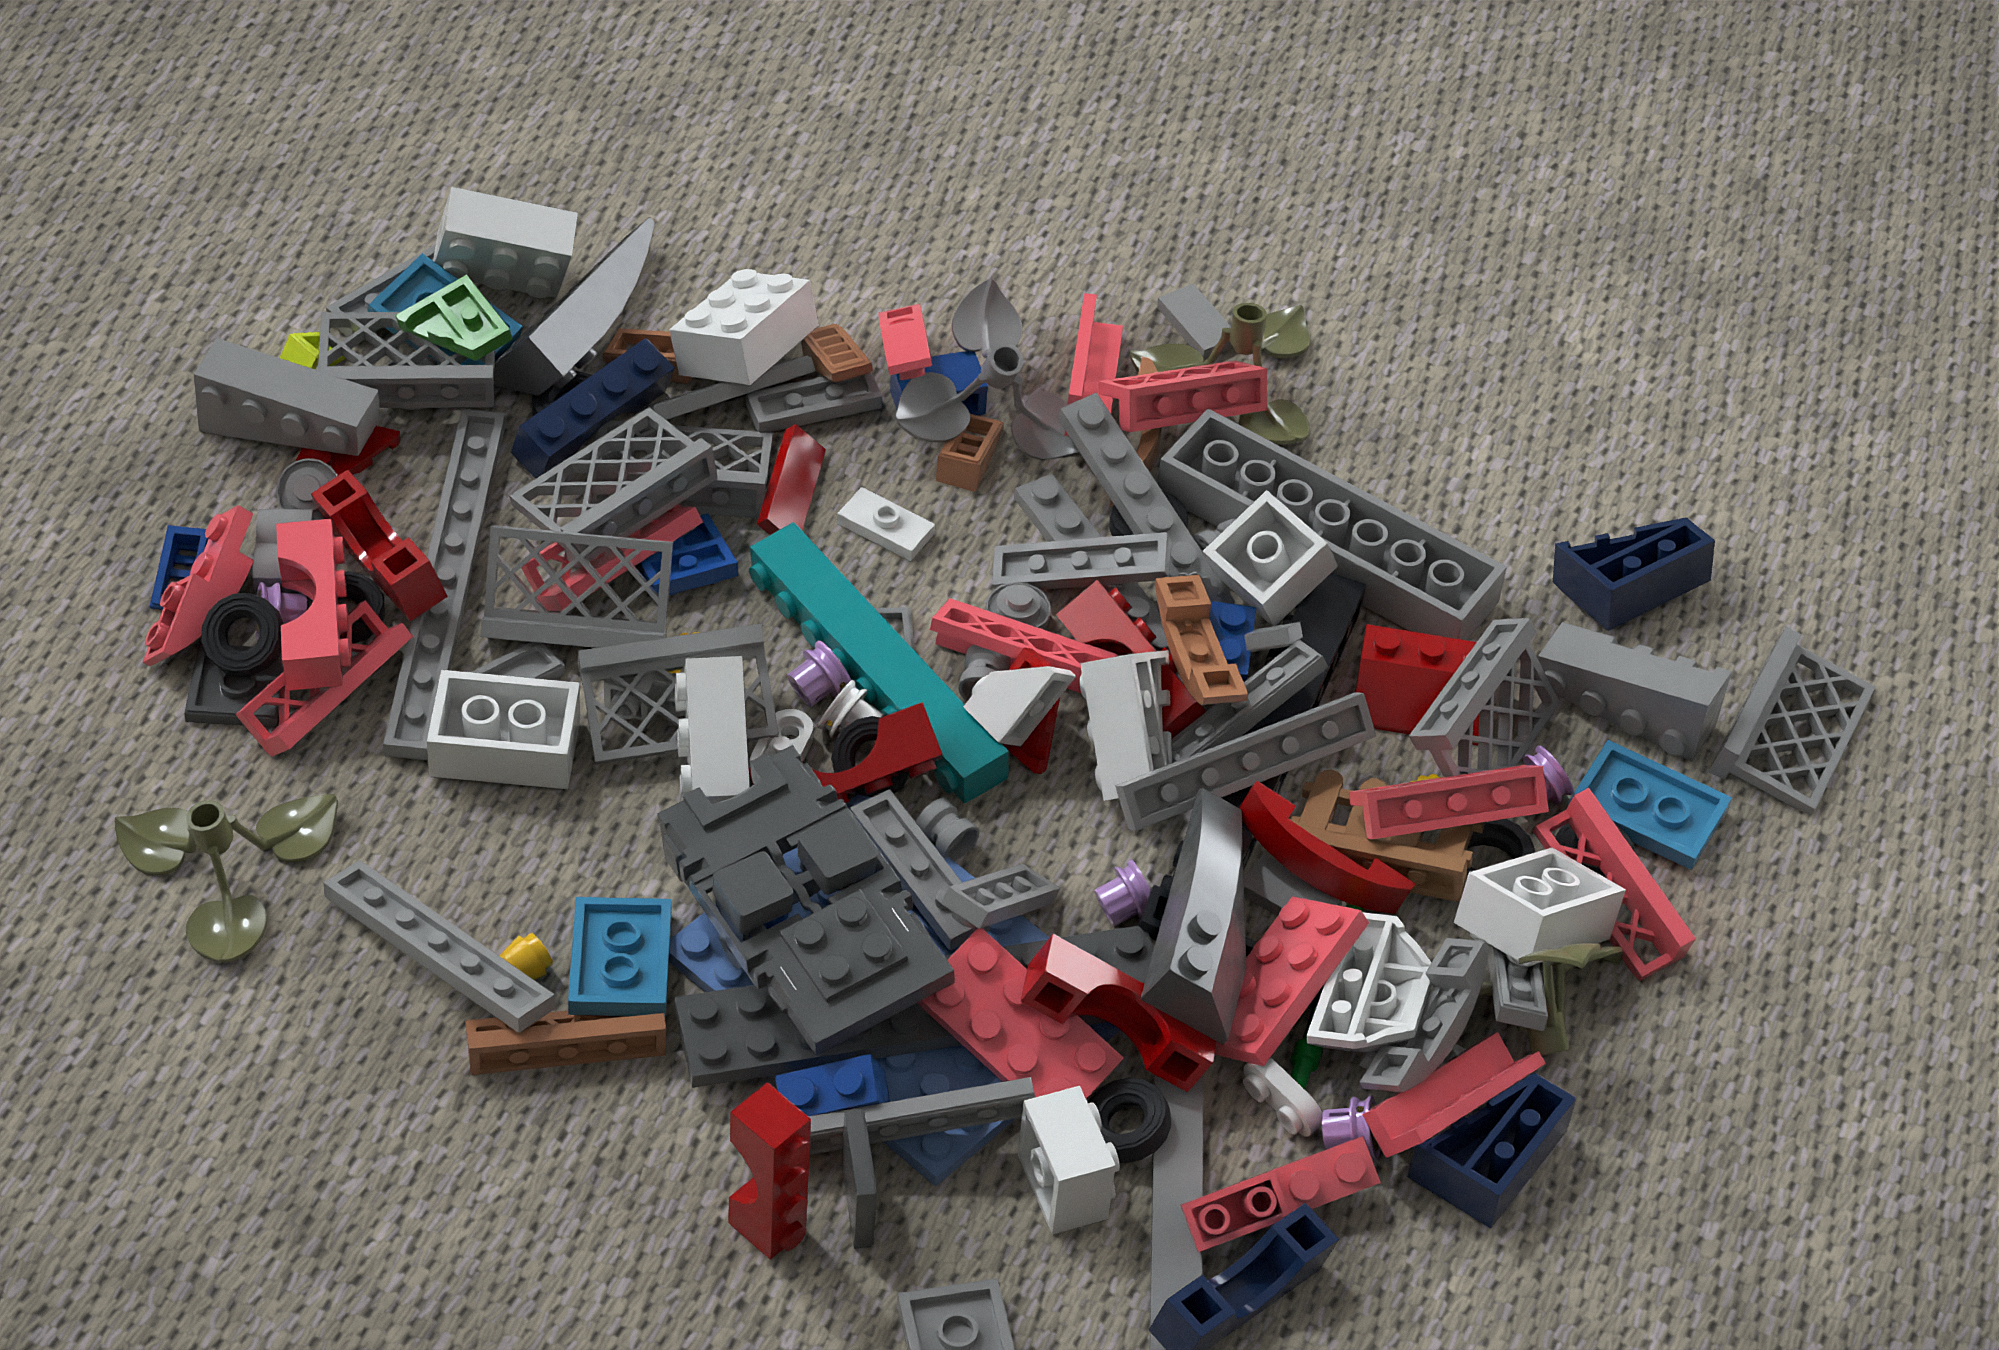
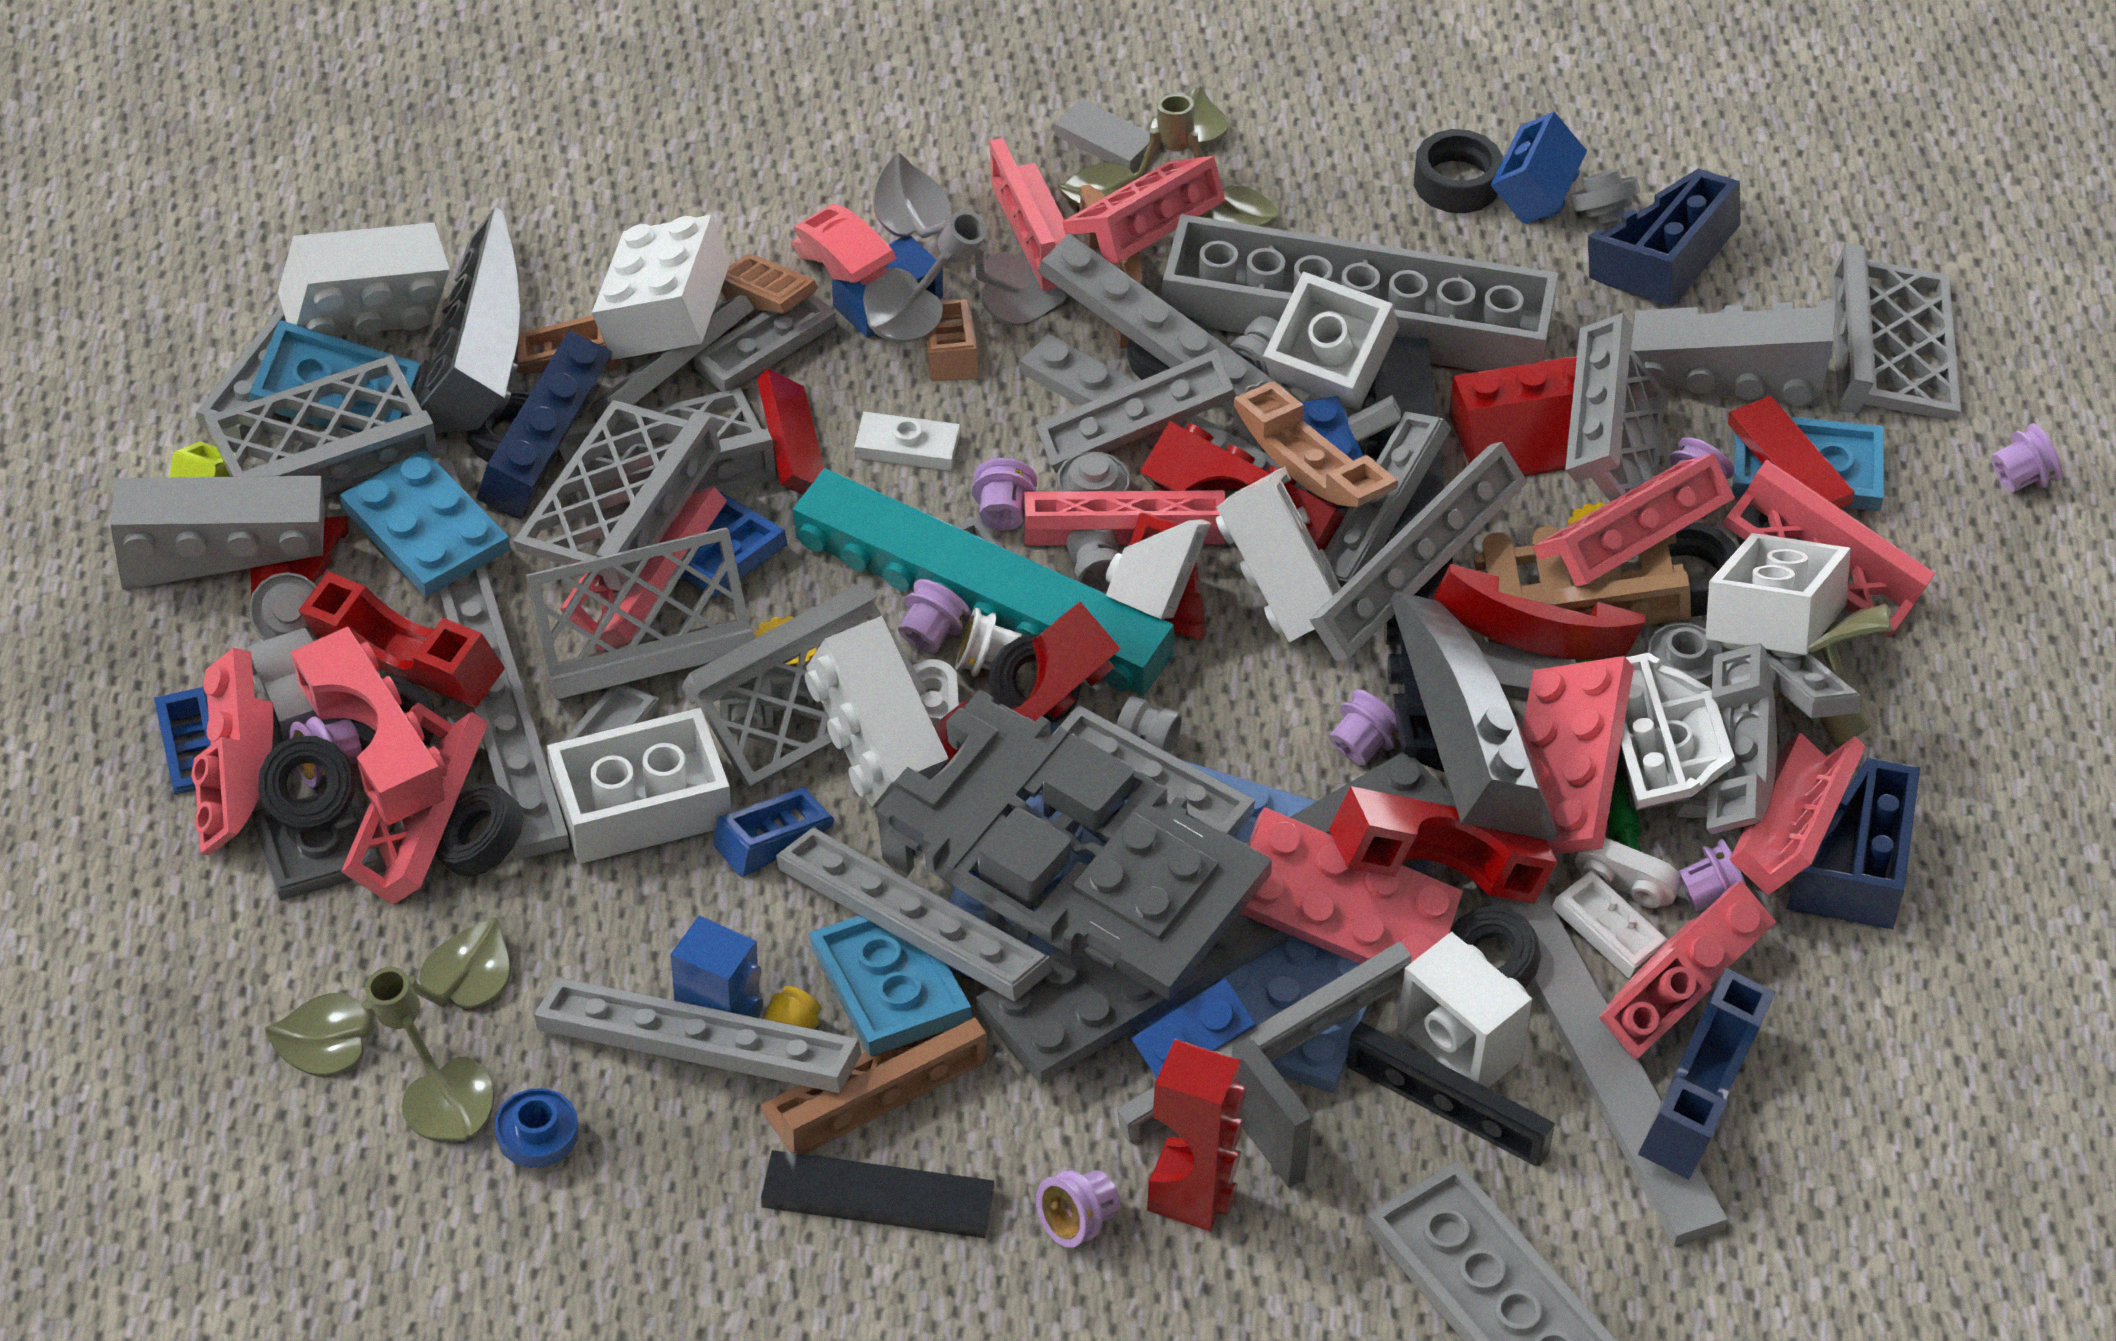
camera: 20 degrees left, 0 degrees up
(276, 973) = (536, 1128): none -> blue plate
(381, 716) = (493, 843): none -> black tyre
(453, 457) = (425, 522): none -> dark azure plate
(457, 320) = (363, 375): bright green wing -> none
(476, 900) = (717, 969): none -> blue brick
(518, 1127) = (878, 1194): none -> black tile
(582, 816) = (749, 851): none -> blue slope
(664, 912) = (914, 914): none -> light grey tile
(667, 1195) = (1072, 1207): none -> lavender piece
(932, 589) = (1000, 489): none -> lavender piece
(999, 896) = (1254, 774): light grey plate -> none
(1024, 1223) = (1450, 1094): none -> black tile
(1242, 1131) = (1609, 923): none -> white plate
(1431, 924) = (1686, 650): none -> light grey plate
(1482, 474) = (1451, 194): none -> black tyre
(1553, 472) = (1539, 168): none -> blue brick
(1601, 514) = (1606, 195): none -> light grey plate
(1629, 792) = (1778, 439): none -> red tile
(1844, 871) = (2027, 460): none -> lavender piece

